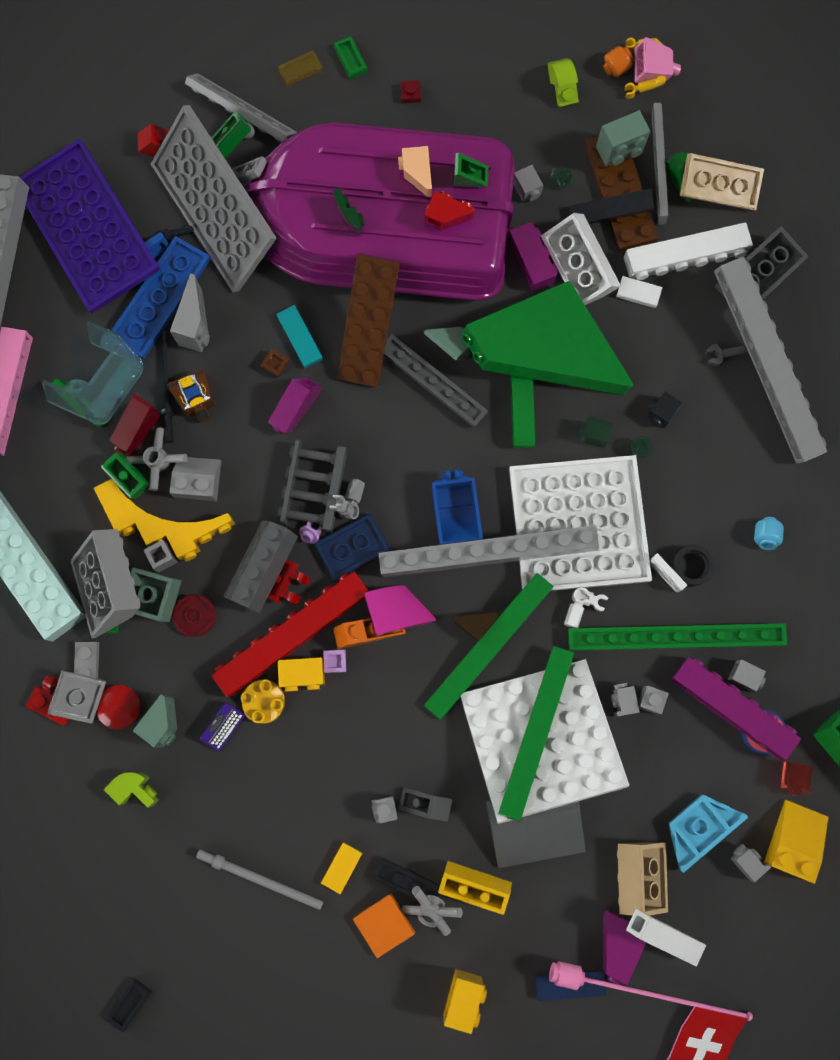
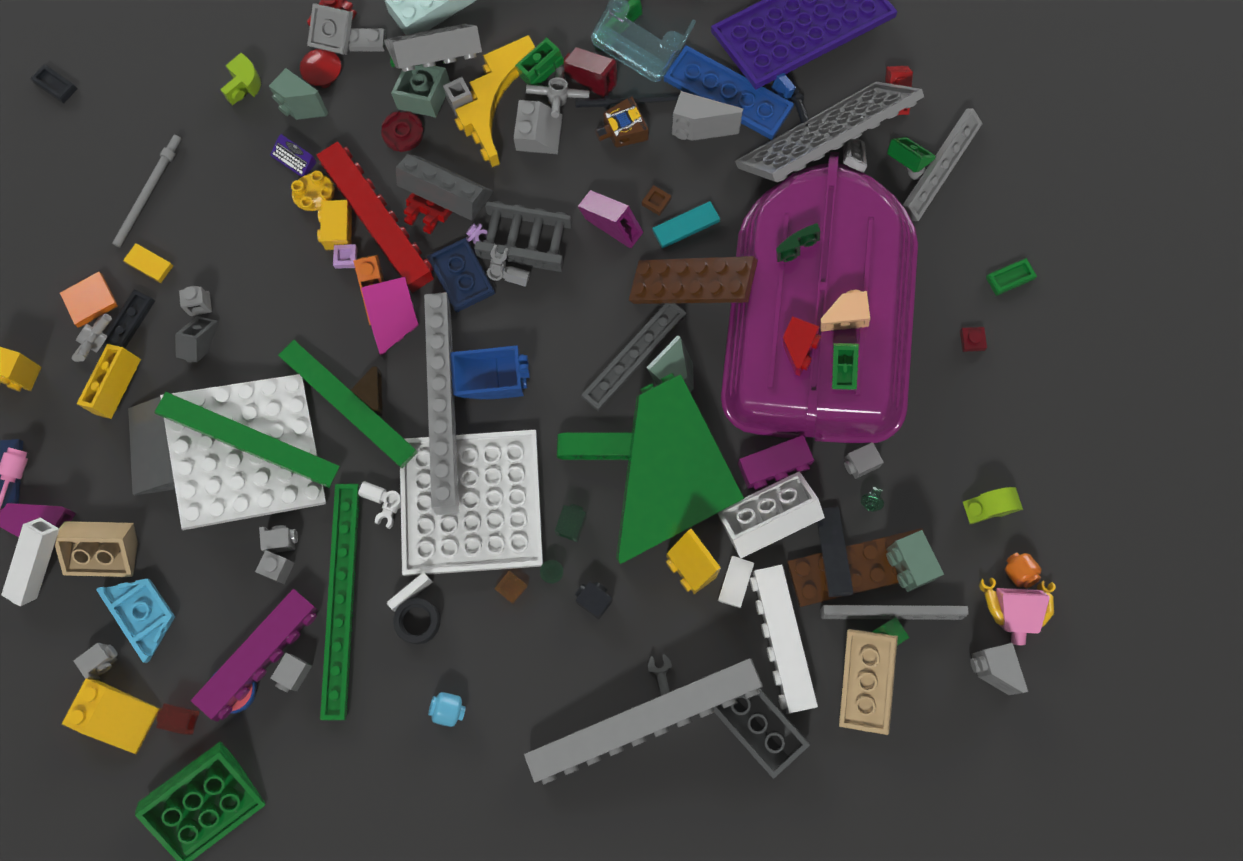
camera: 95 degrees right, 5 degrees down
(300, 68) = (995, 225): clear yellow tile -> none
(631, 321) = (692, 562): none -> yellow slope
(655, 484) = (511, 587): none -> clear orange tile
(701, 80) = (1000, 668): none -> light grey slope

